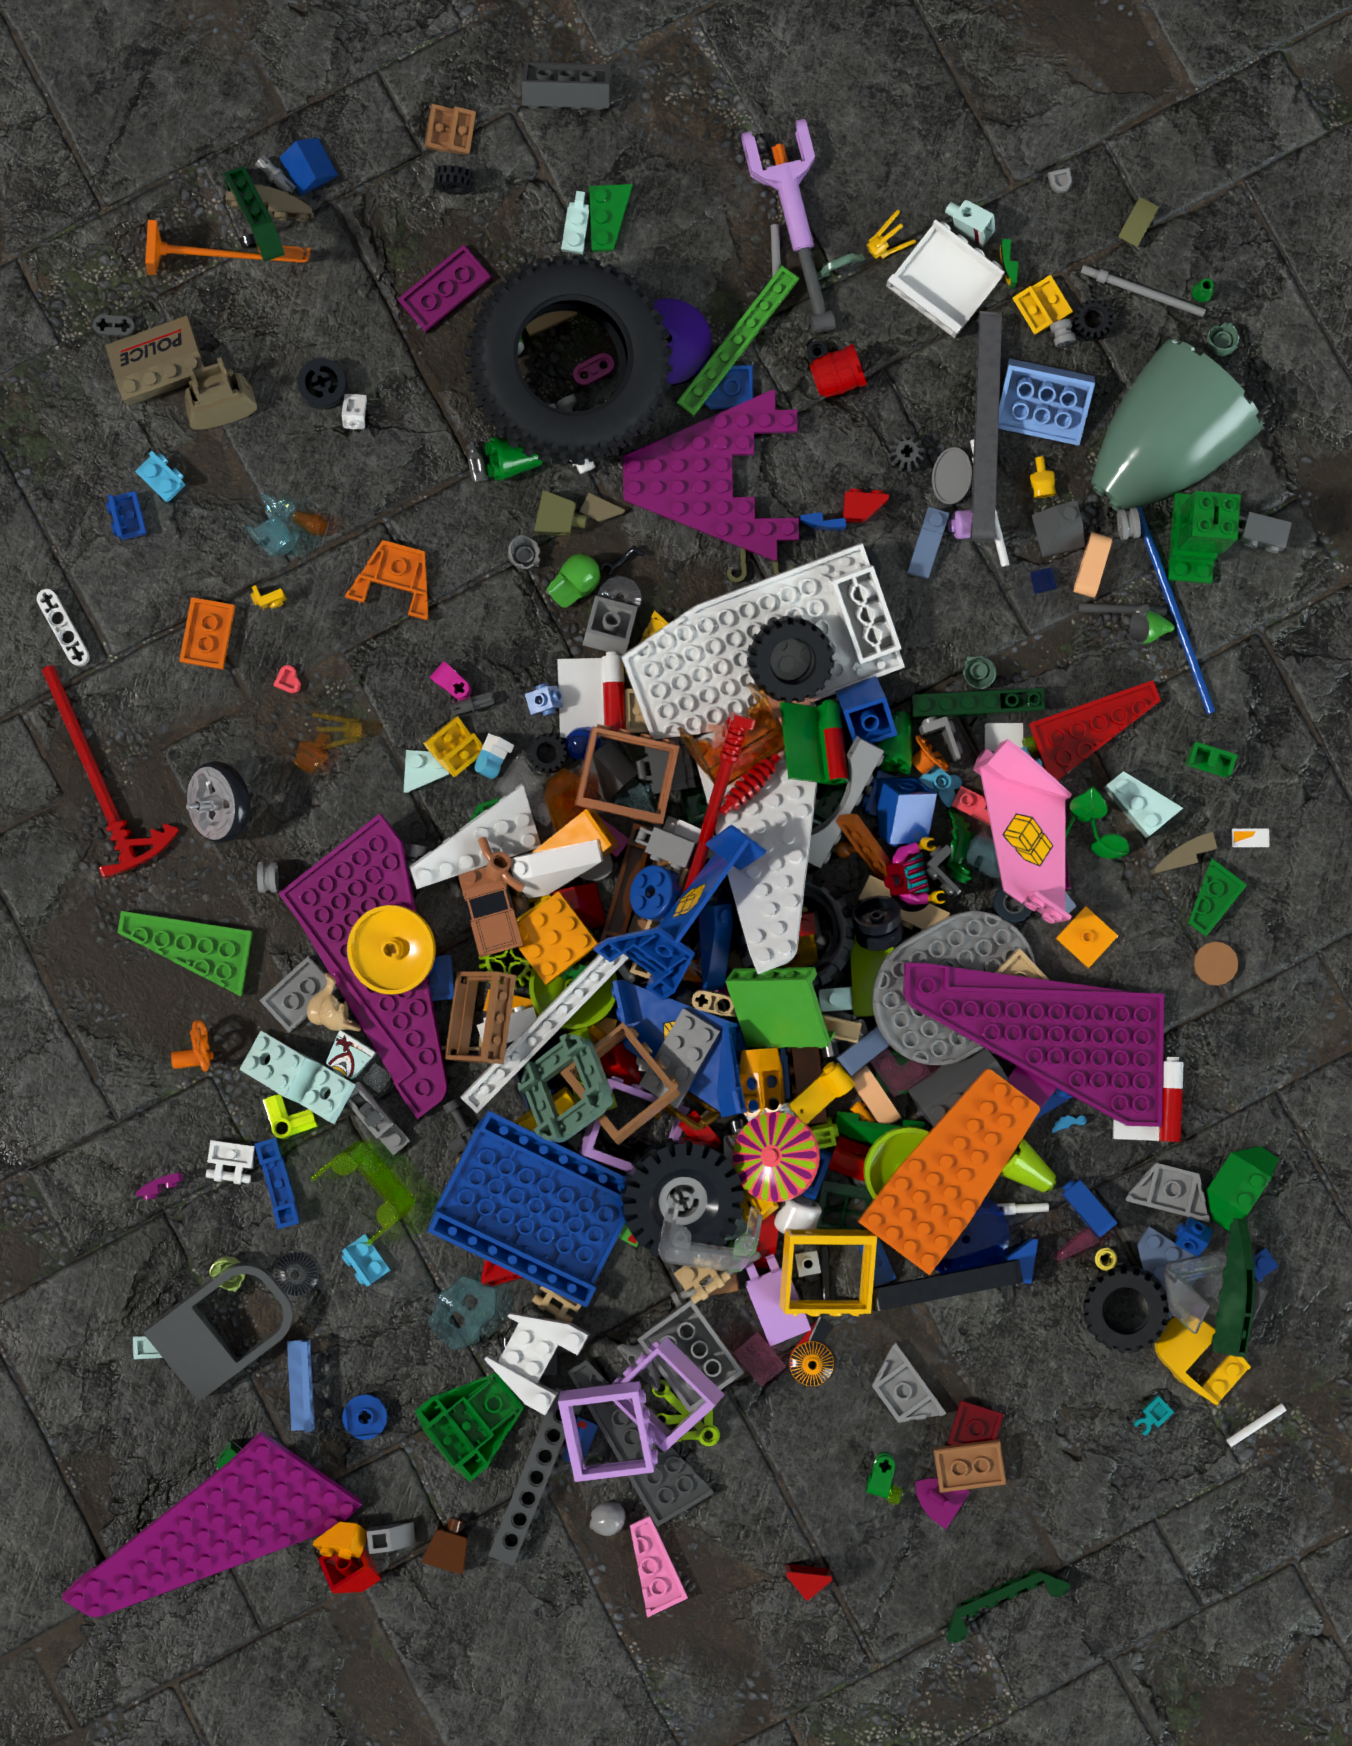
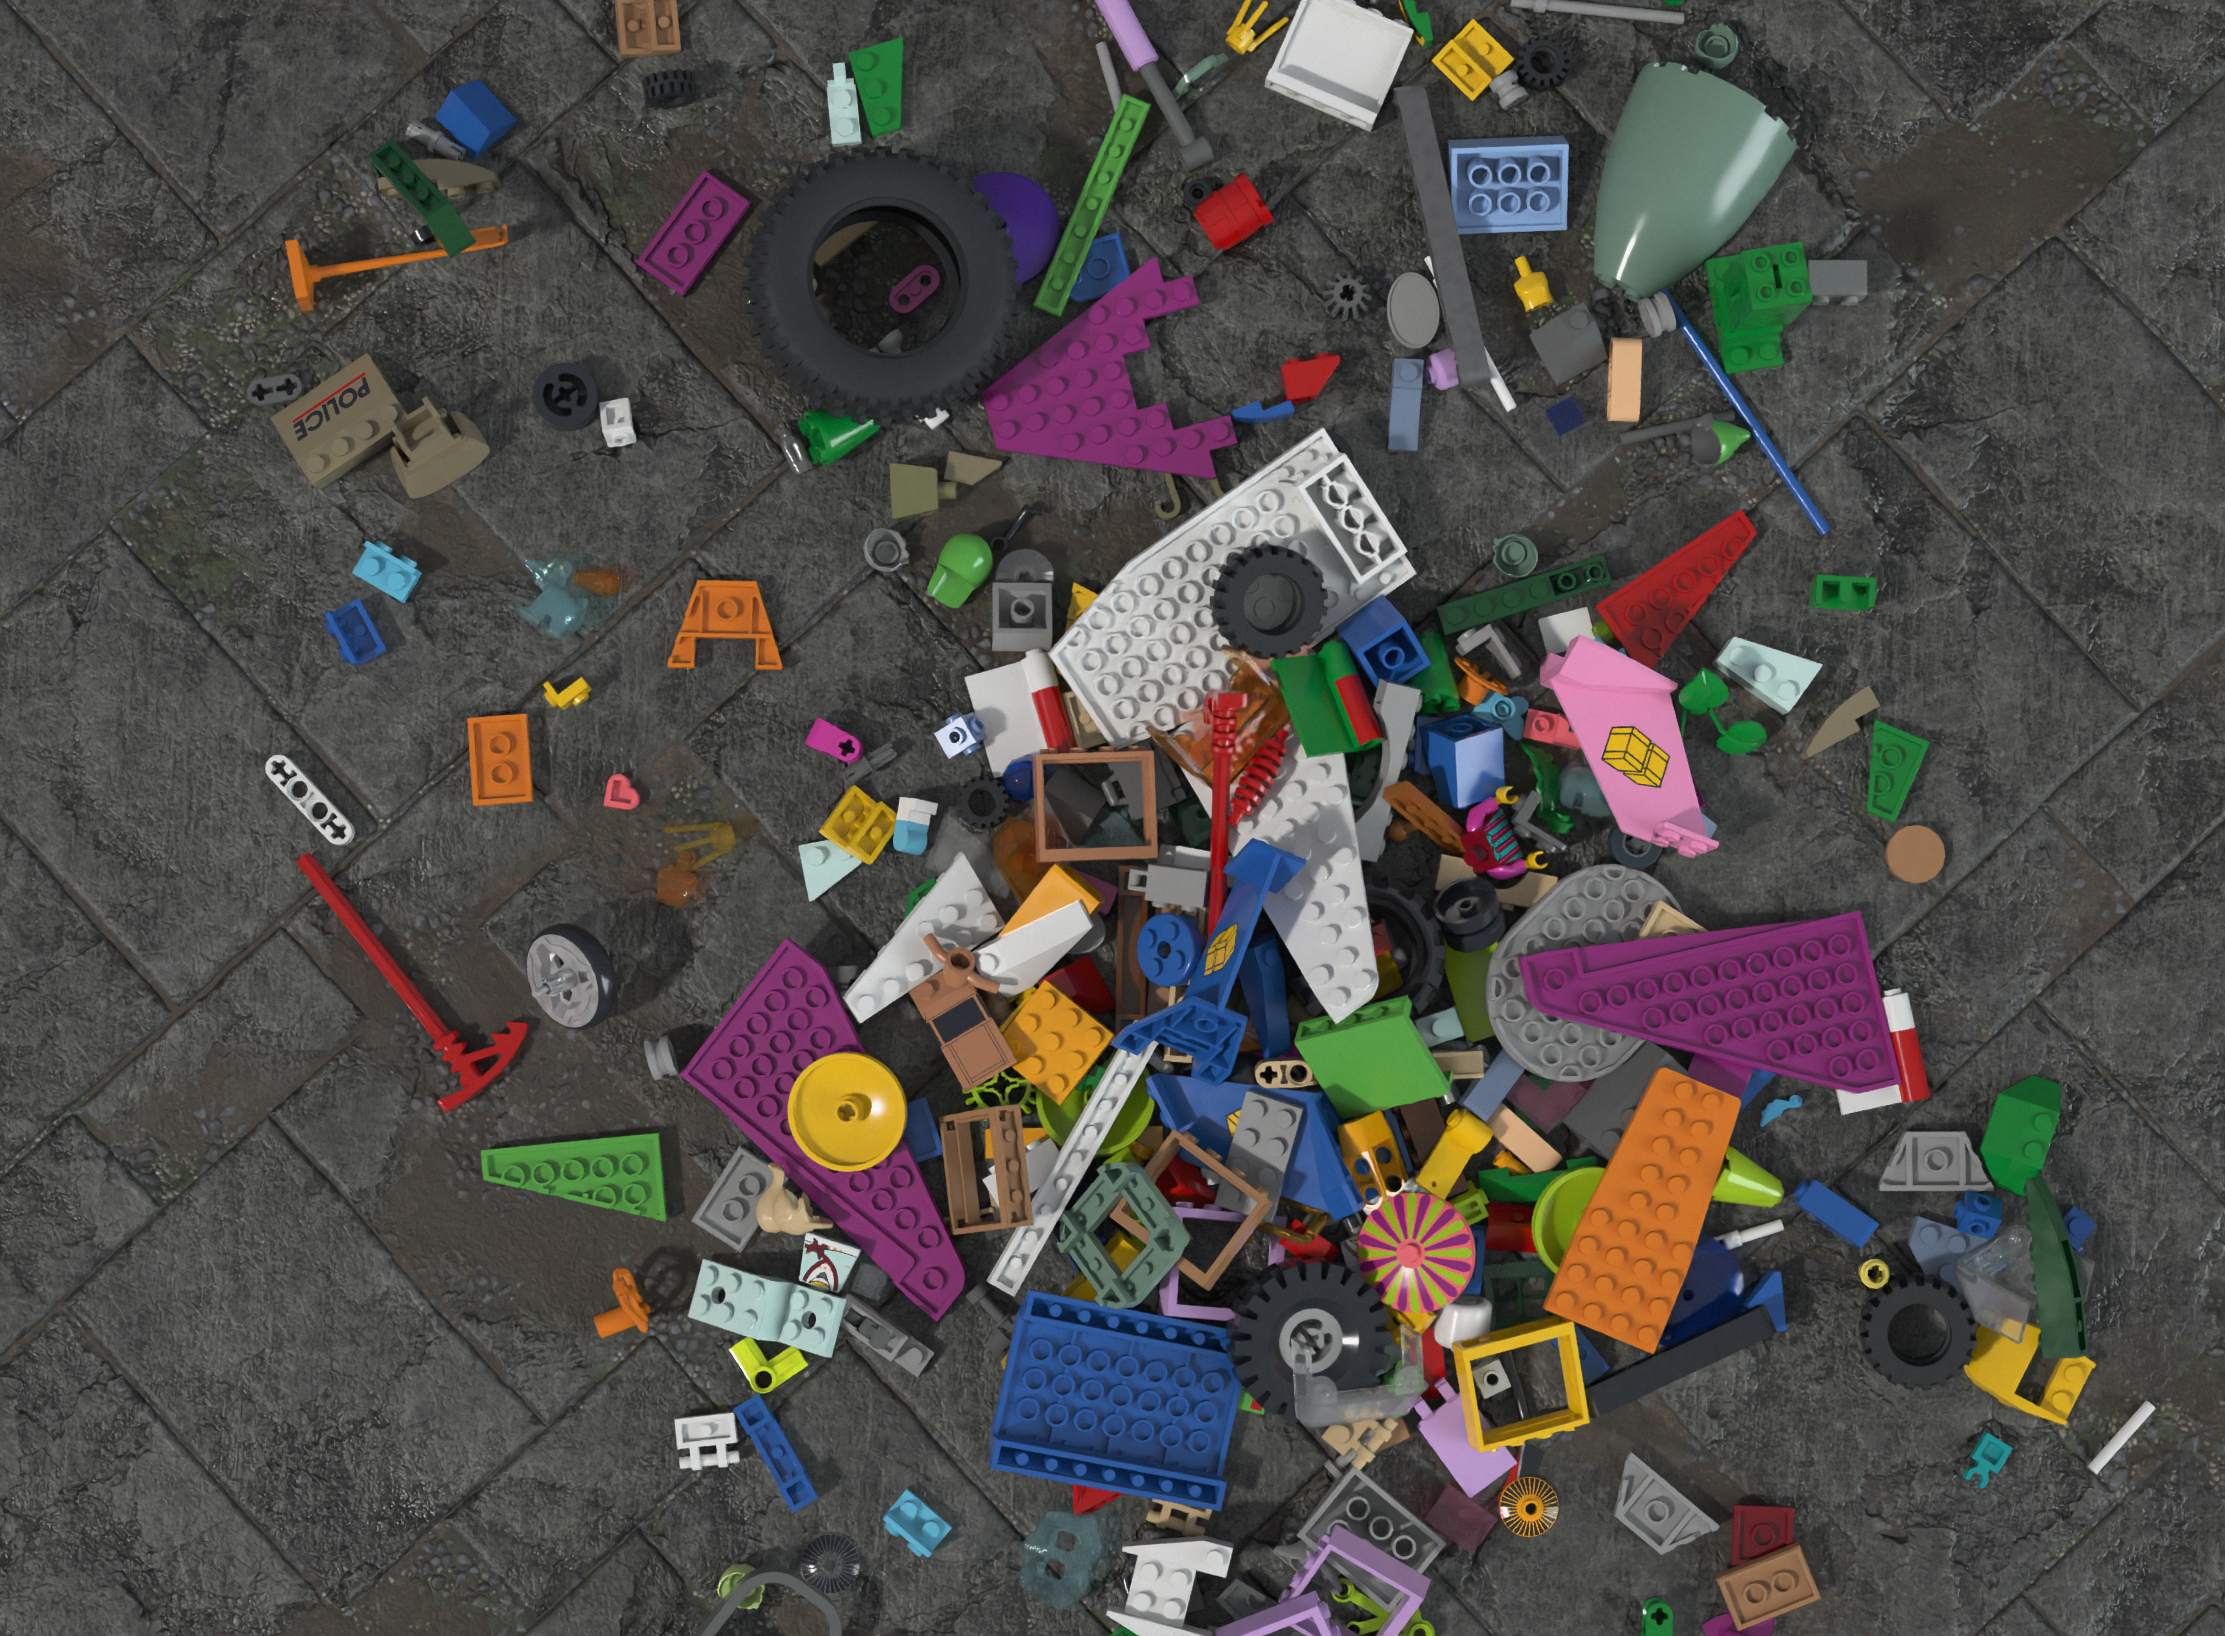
camera: 20 degrees left, 0 degrees up
(154, 1187) = (617, 1500): magenta slope -> none
(361, 1157) = (935, 1430): clear neon green windscreen -> none
(1080, 1242) = (1832, 1262): clear pink slope -> none
(1086, 937) = (1740, 862): light orange plate -> none
(1250, 837) = (1917, 680): white sticker -> none

